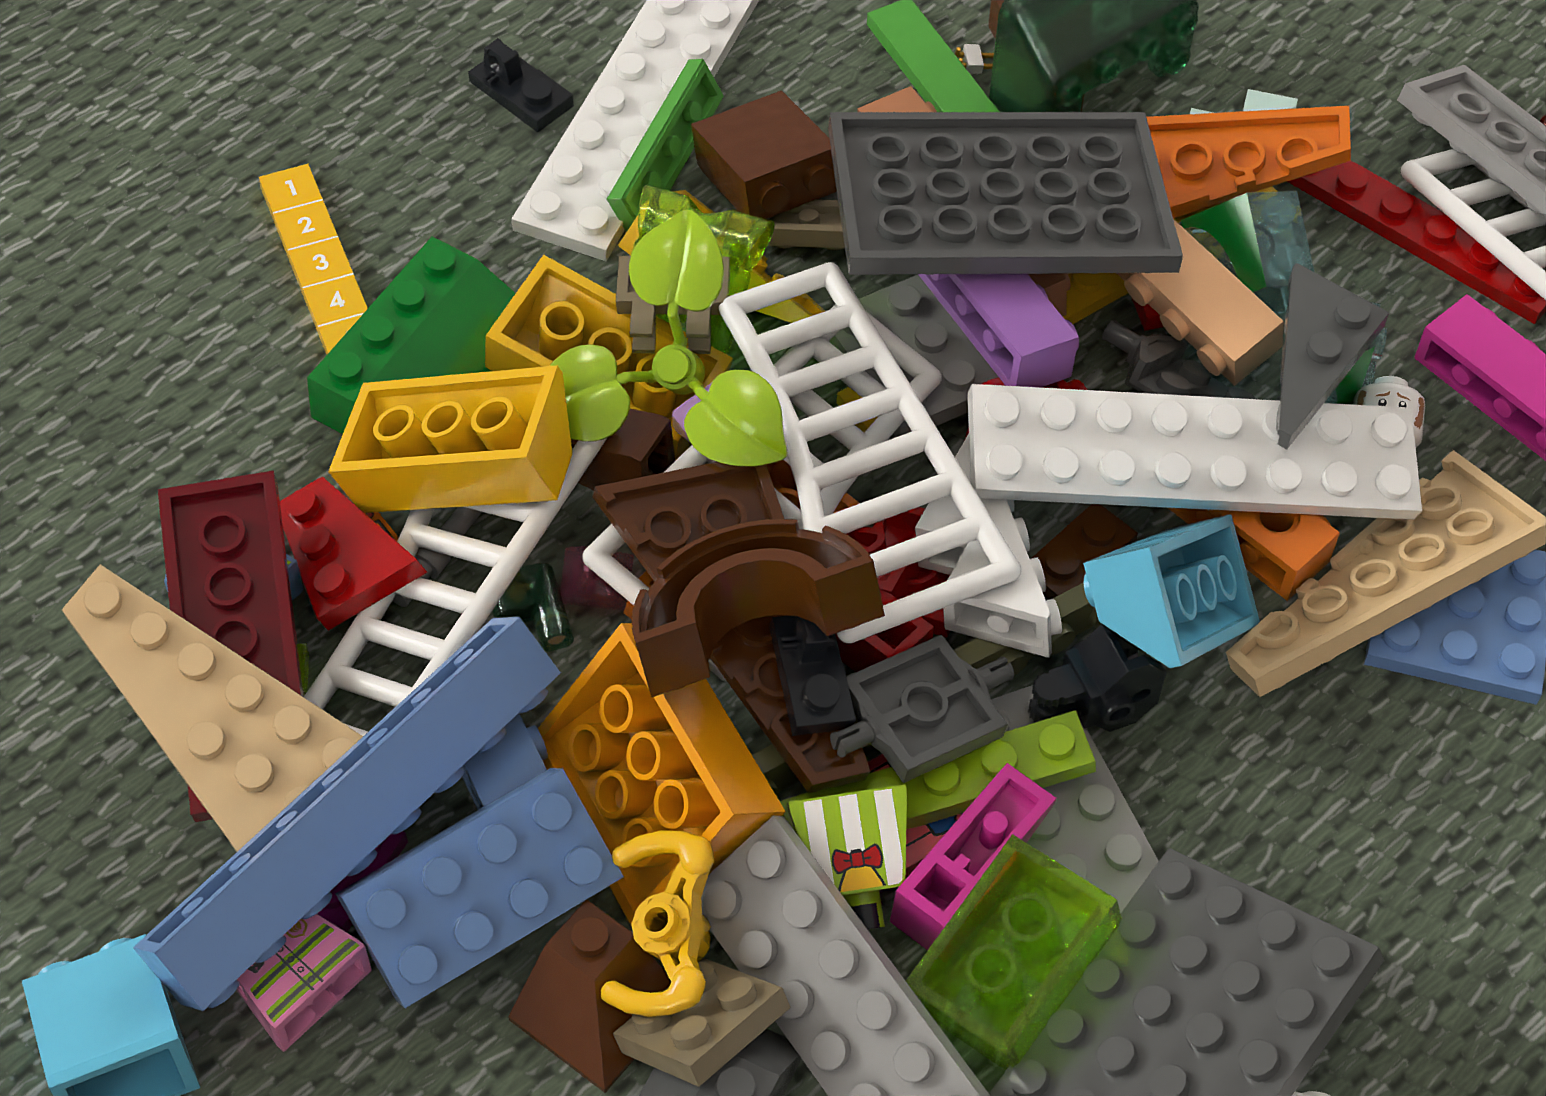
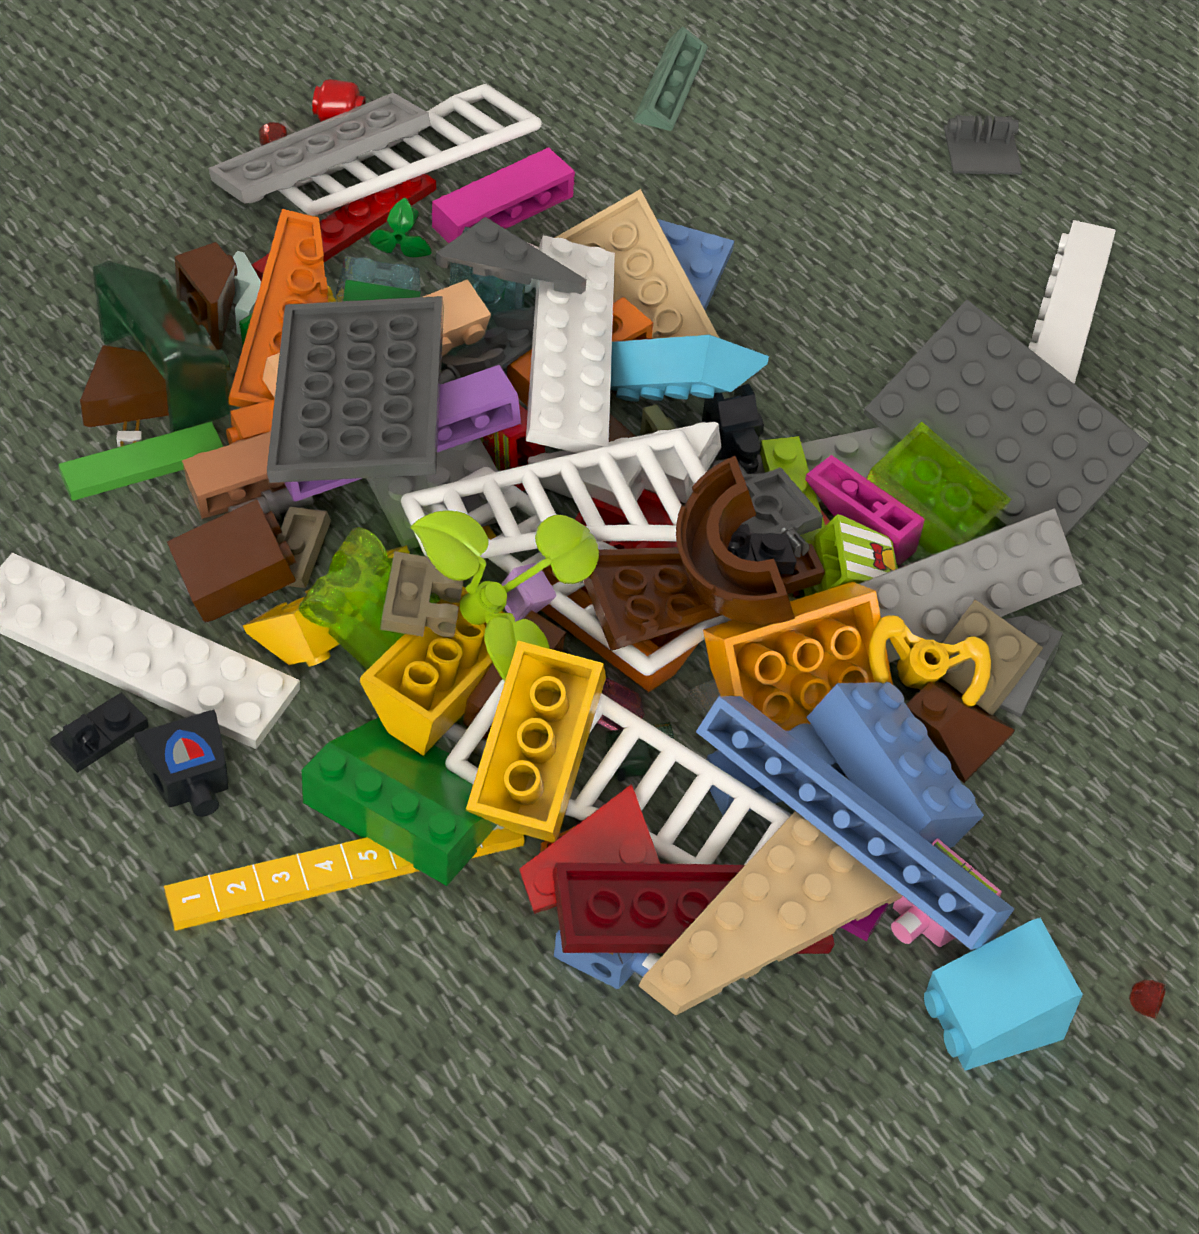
camera: 90 degrees left, 5 degrees down
(471, 159) = (185, 761): none -> black torso
(667, 139) = (198, 628): bright green tile -> none
(1201, 69) = (207, 287): none -> reddish brown slope
(1407, 274) = (401, 220): none -> green plant

